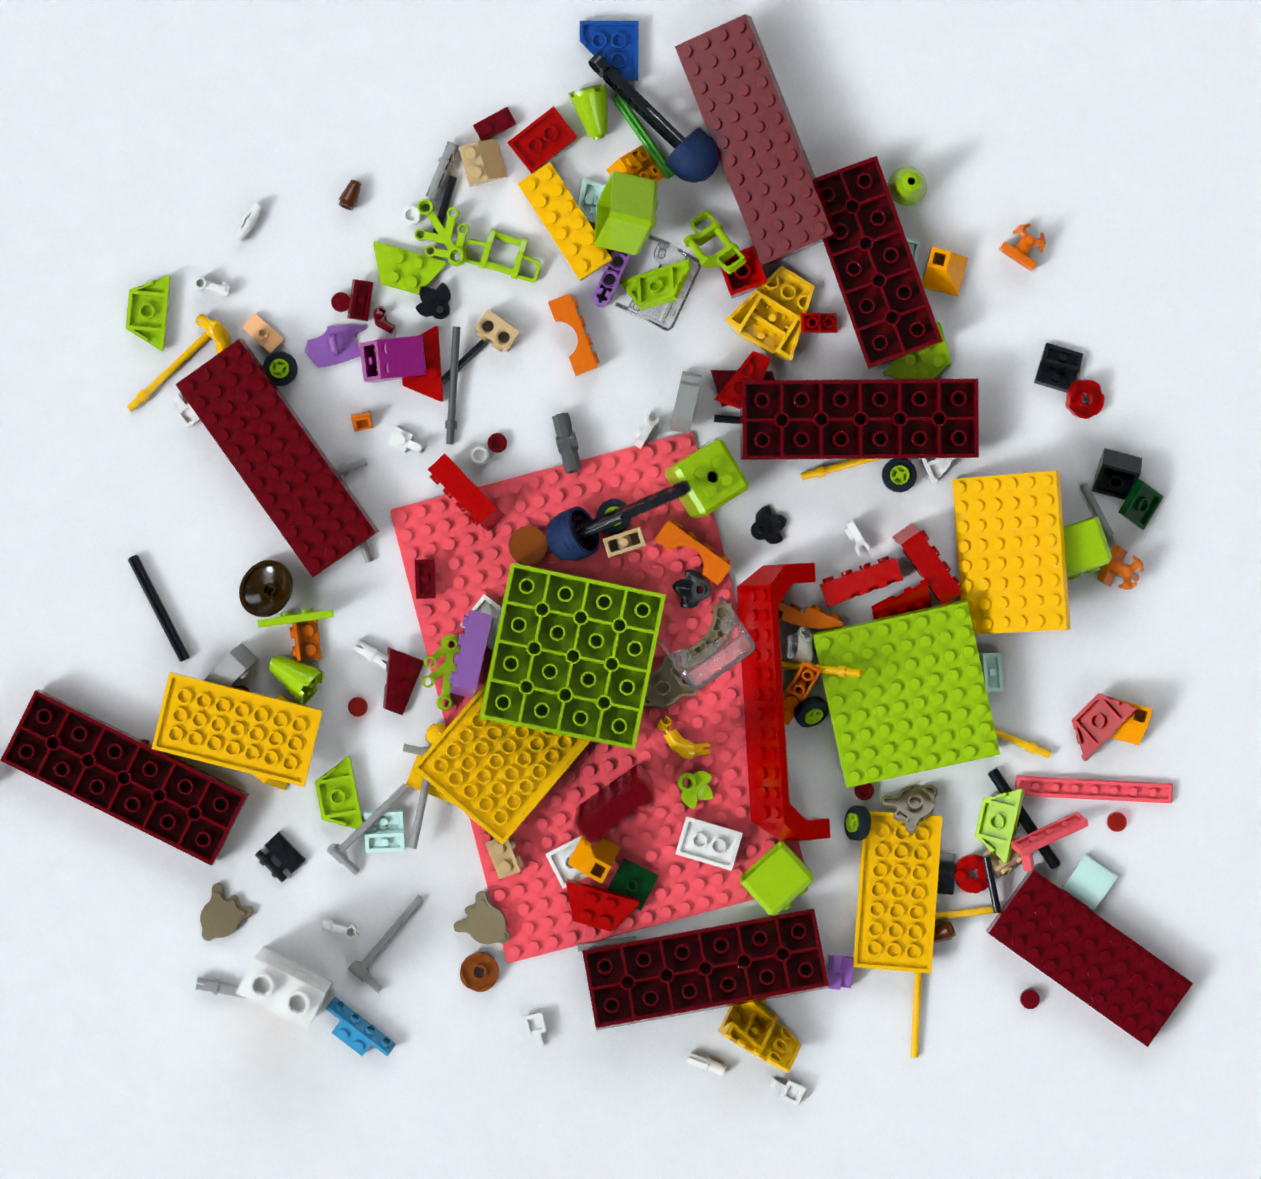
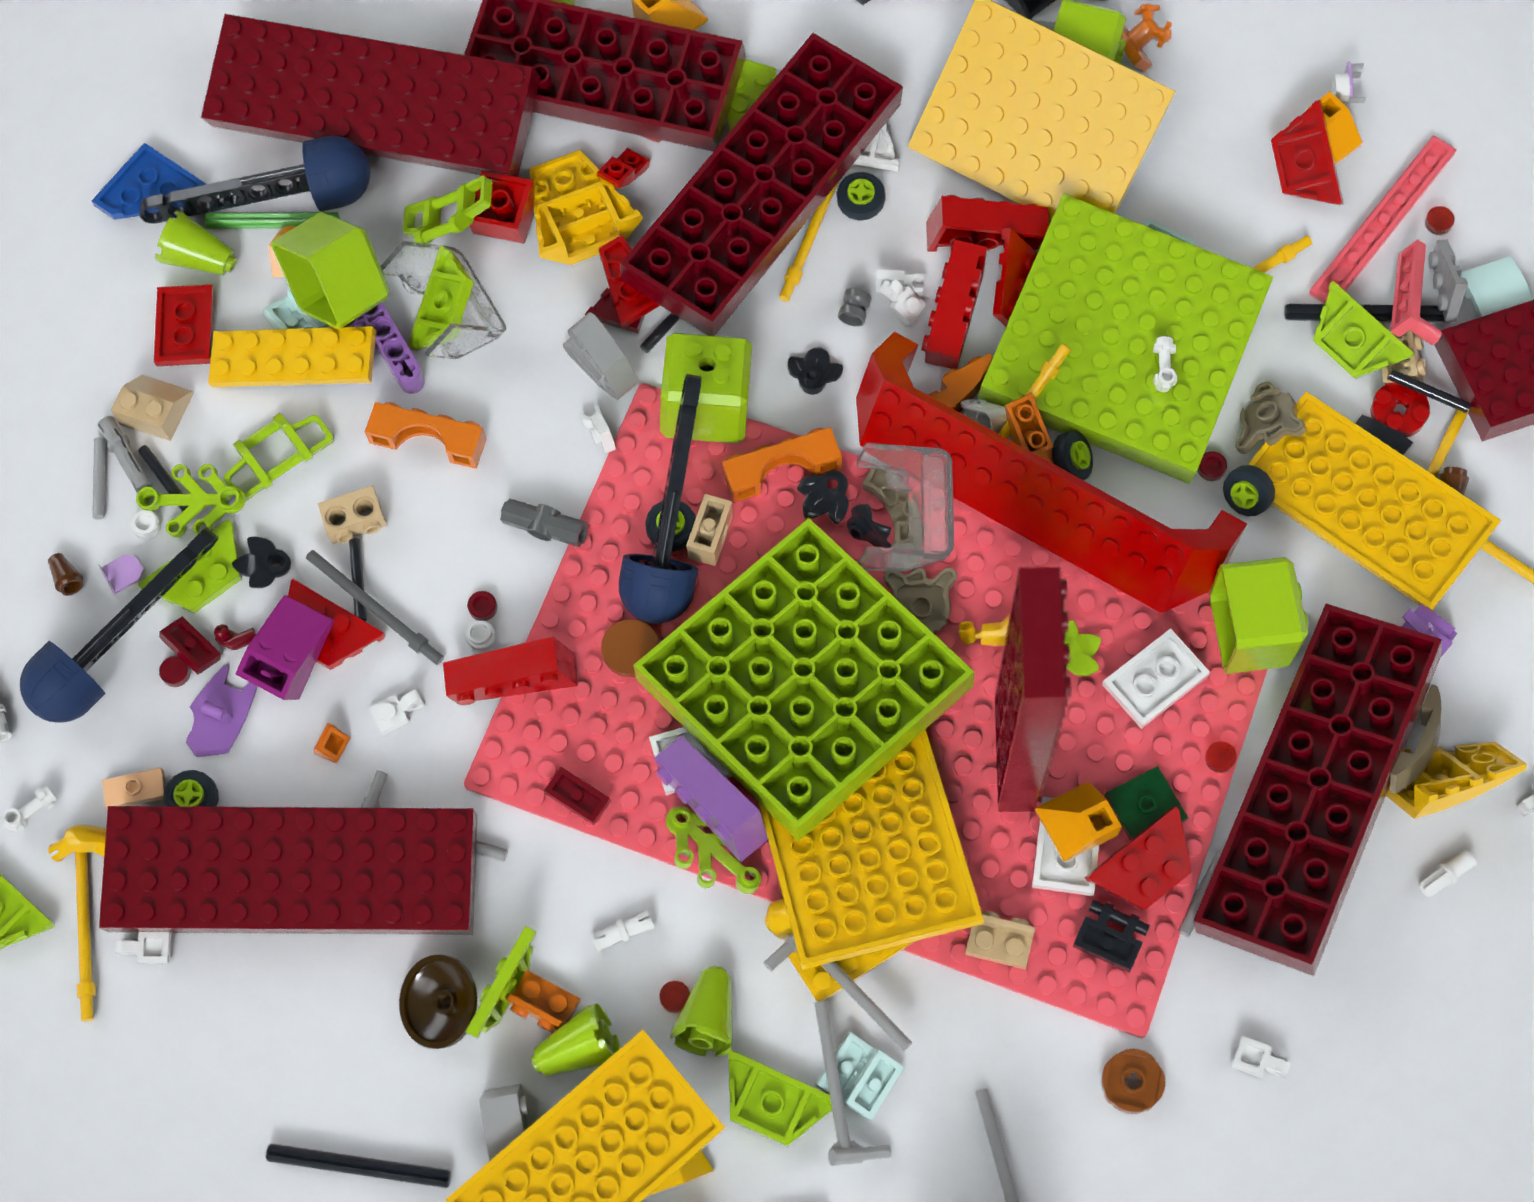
camera: 55 degrees left, 20 degrees down
(285, 251) = (58, 685): none -> piece
(359, 731) = (707, 1015): none -> lime cone
(373, 228) = (123, 573): none -> lavender piece
(401, 678) = (680, 915): dark red wing -> none
(419, 166) = (99, 478): none -> light grey bar
(484, 922) = (1071, 1027): dark tan tile -> none
(494, 124) = (124, 363): dark red plate -> none
(541, 912) = (1109, 944): none -> black plate
(686, 624) = (864, 528): none -> black plate
(688, 906) = (1220, 757): none -> clear red tile
(746, 1009) = (1408, 765): none -> dark tan slope
(823, 522) = (854, 307): none -> dark grey wheel
(845, 549) = (905, 302): none -> white plate
(887, 736) = (1166, 377): none -> white bar
(1058, 862) = (1447, 280): none -> light grey wing
(1170, 710) = (1343, 84): none -> piece

